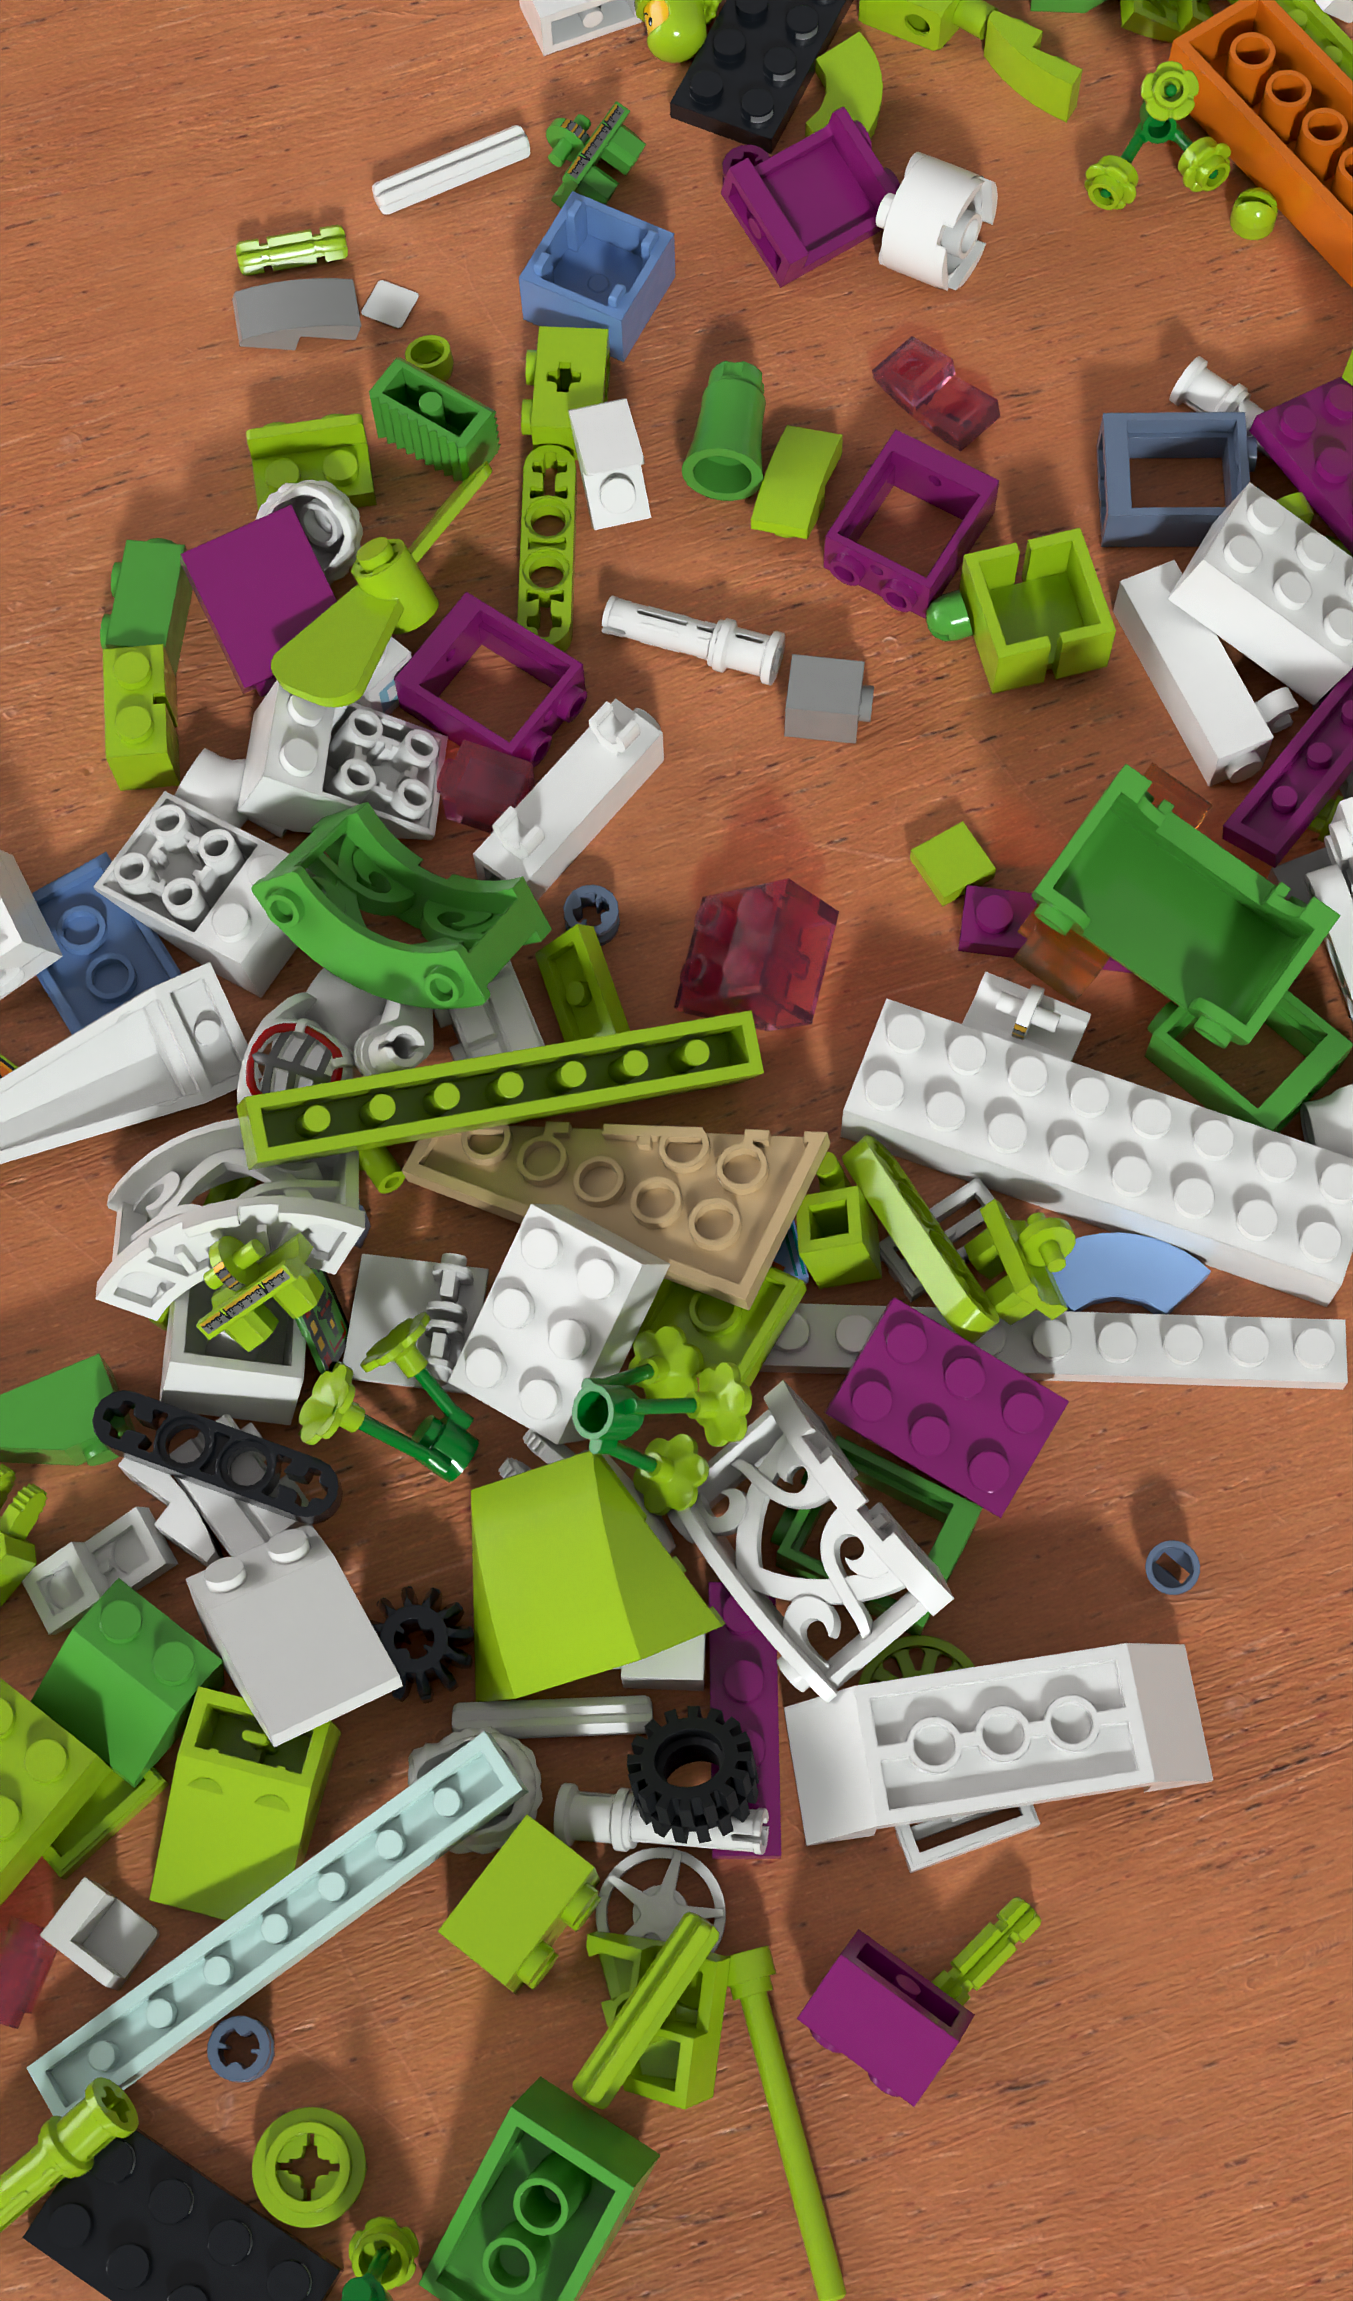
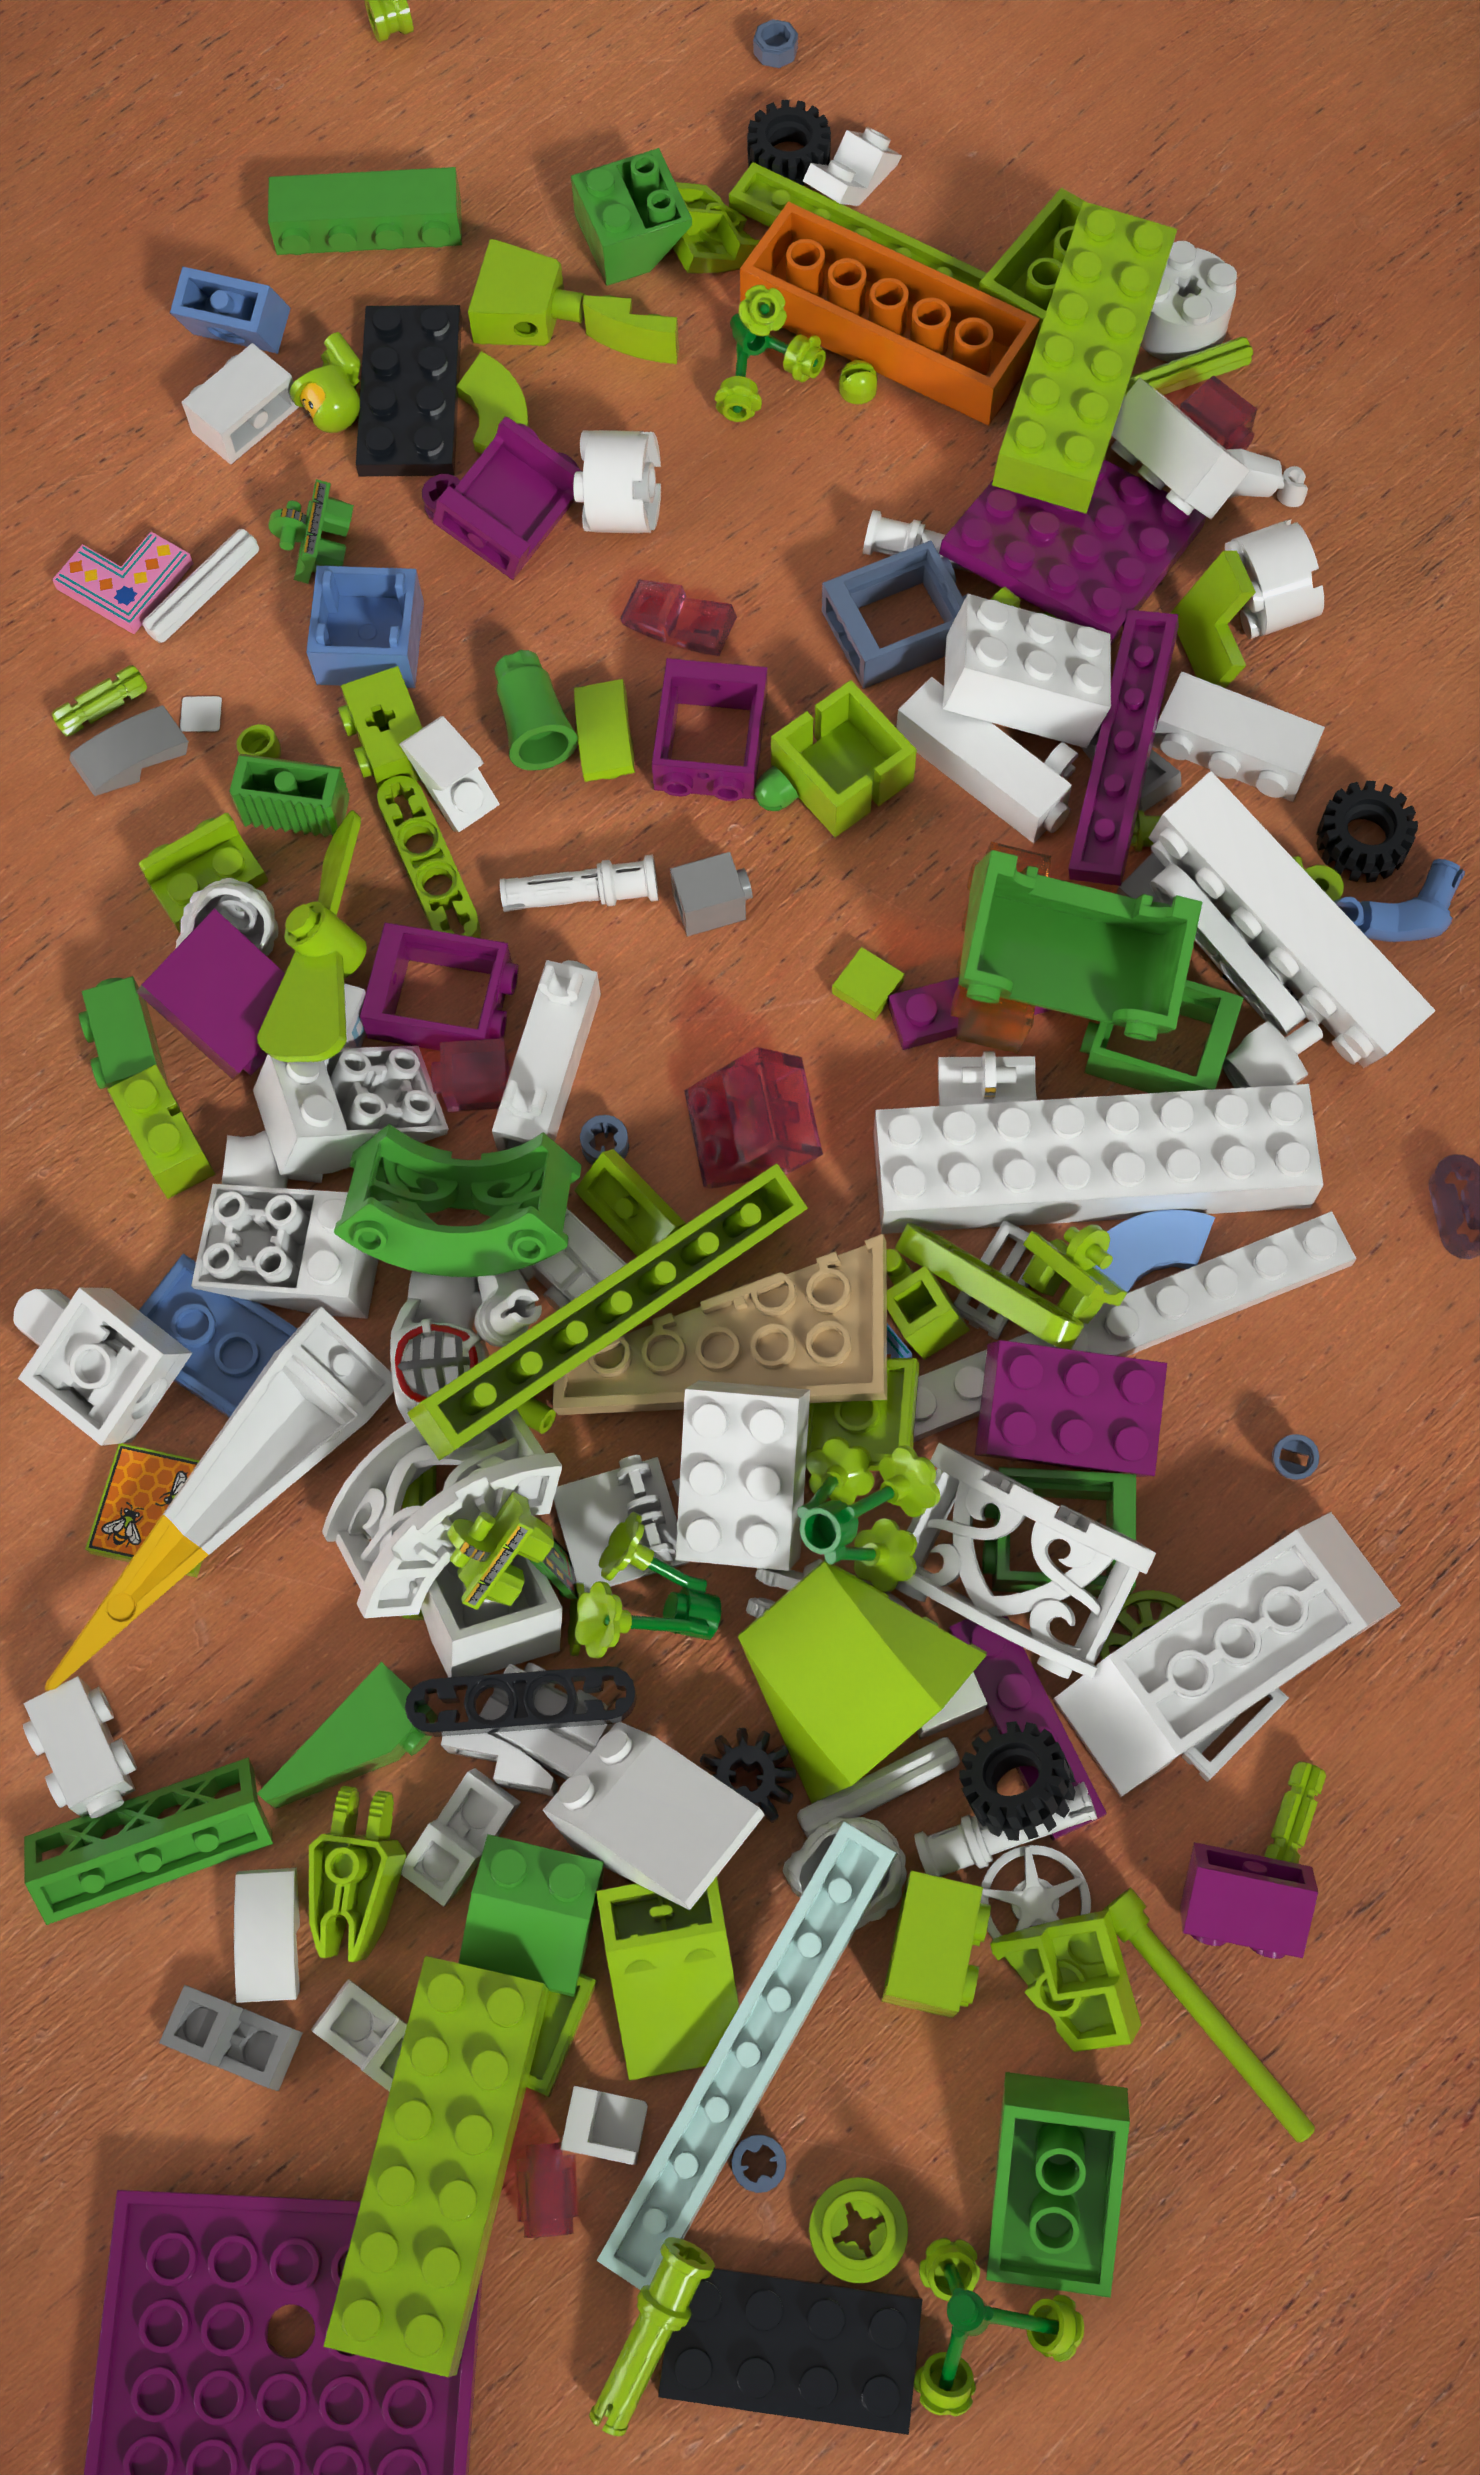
camera: 25 degrees left, 0 degrees up
(375, 147) = (127, 591): none -> bright pink tile
(645, 2010) = (1066, 1981): lime axle -> none

